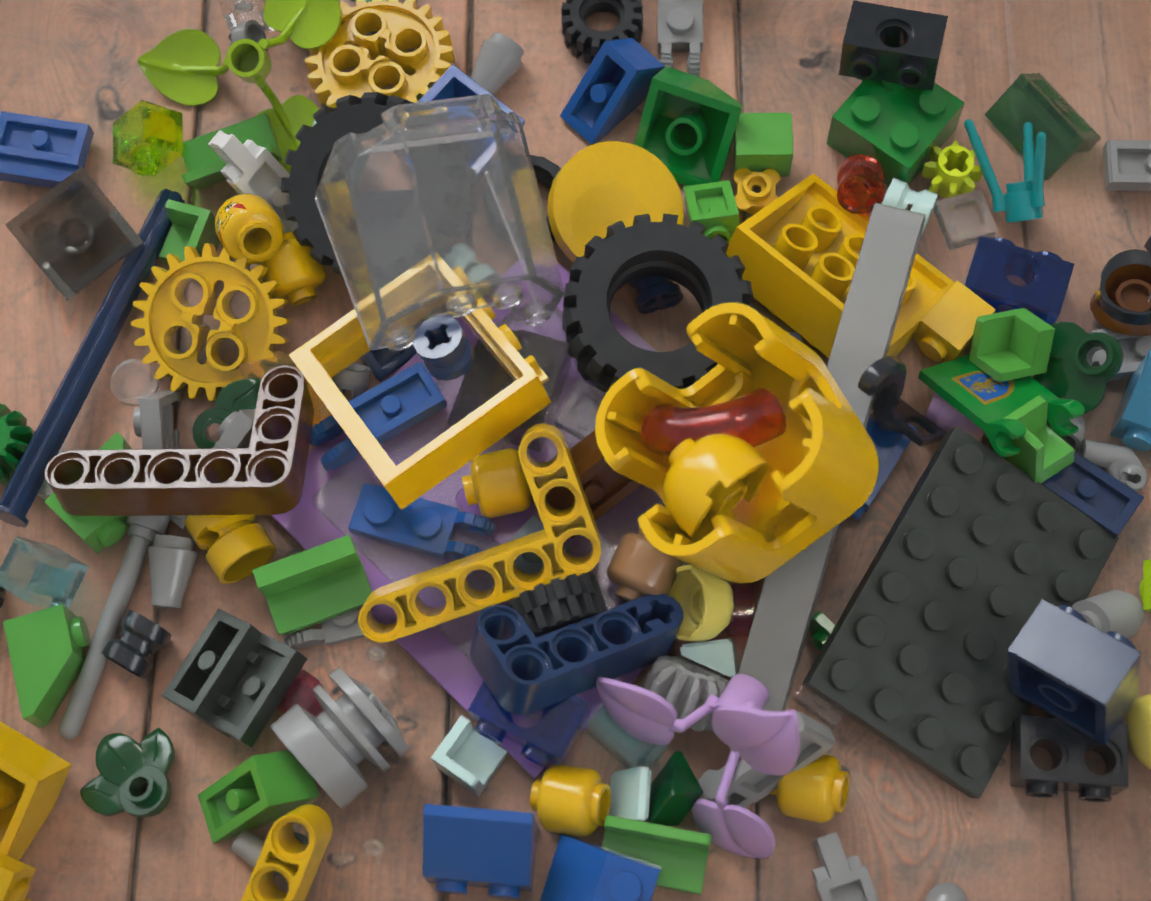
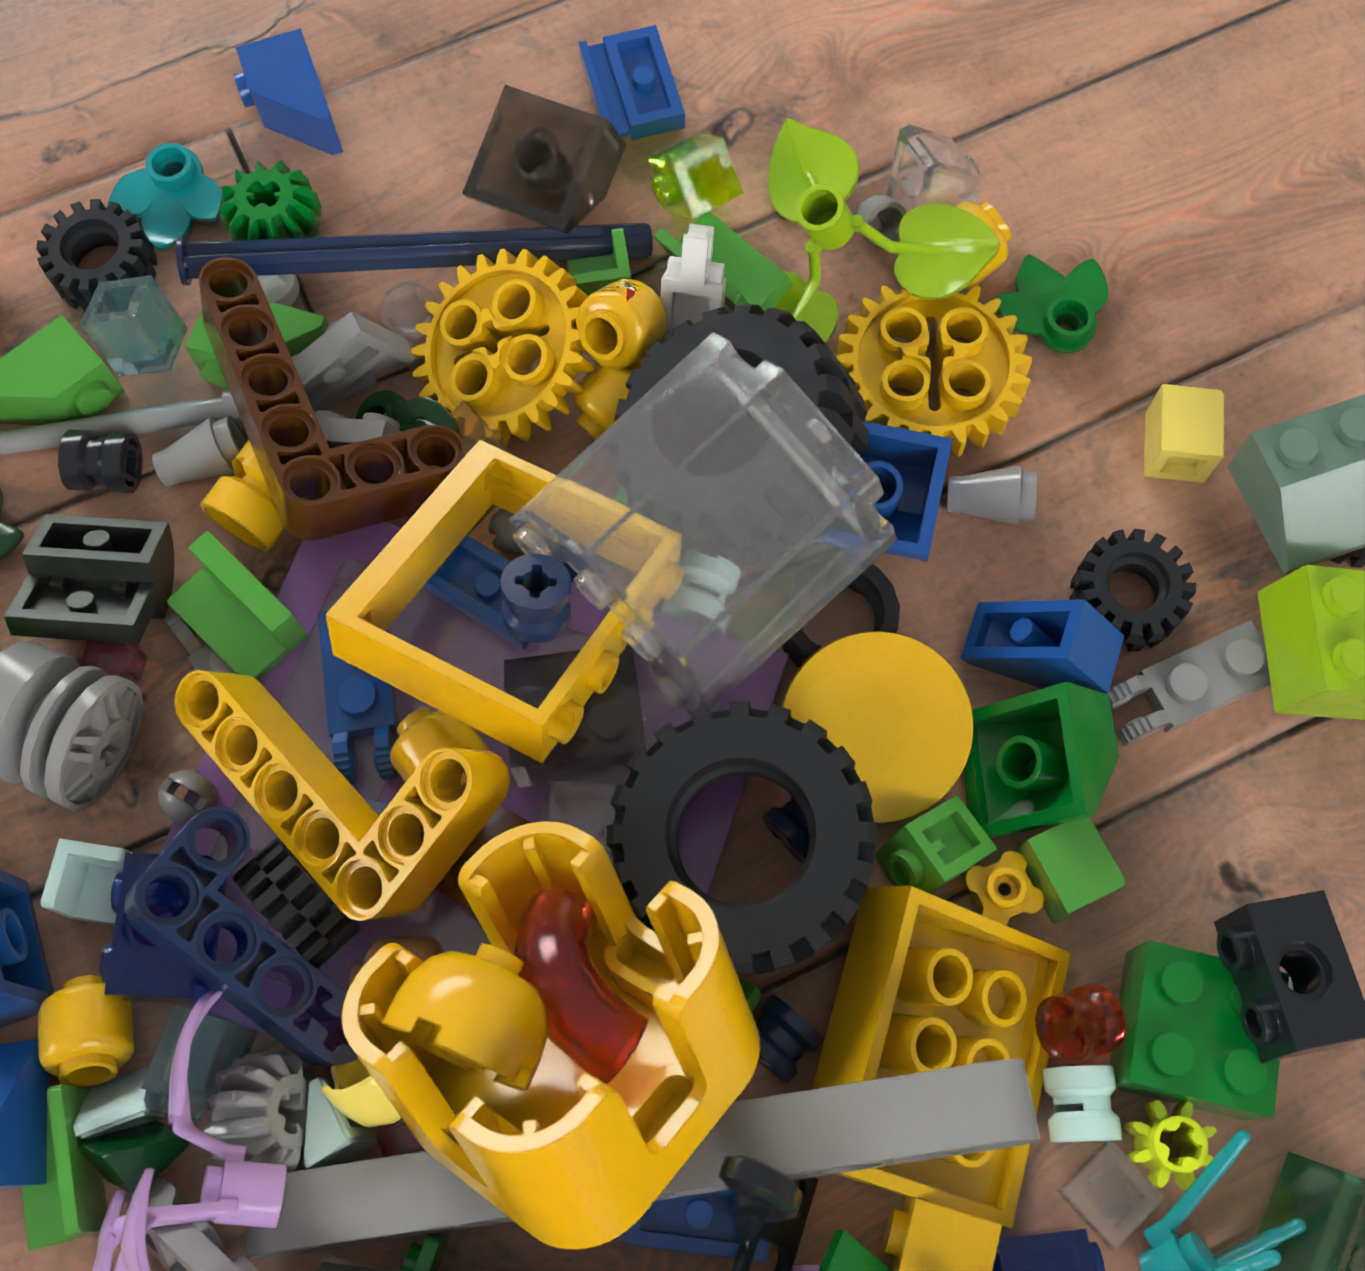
camera: 60 degrees right, 0 degrees up
(443, 679) = (174, 806): none -> light grey hinge

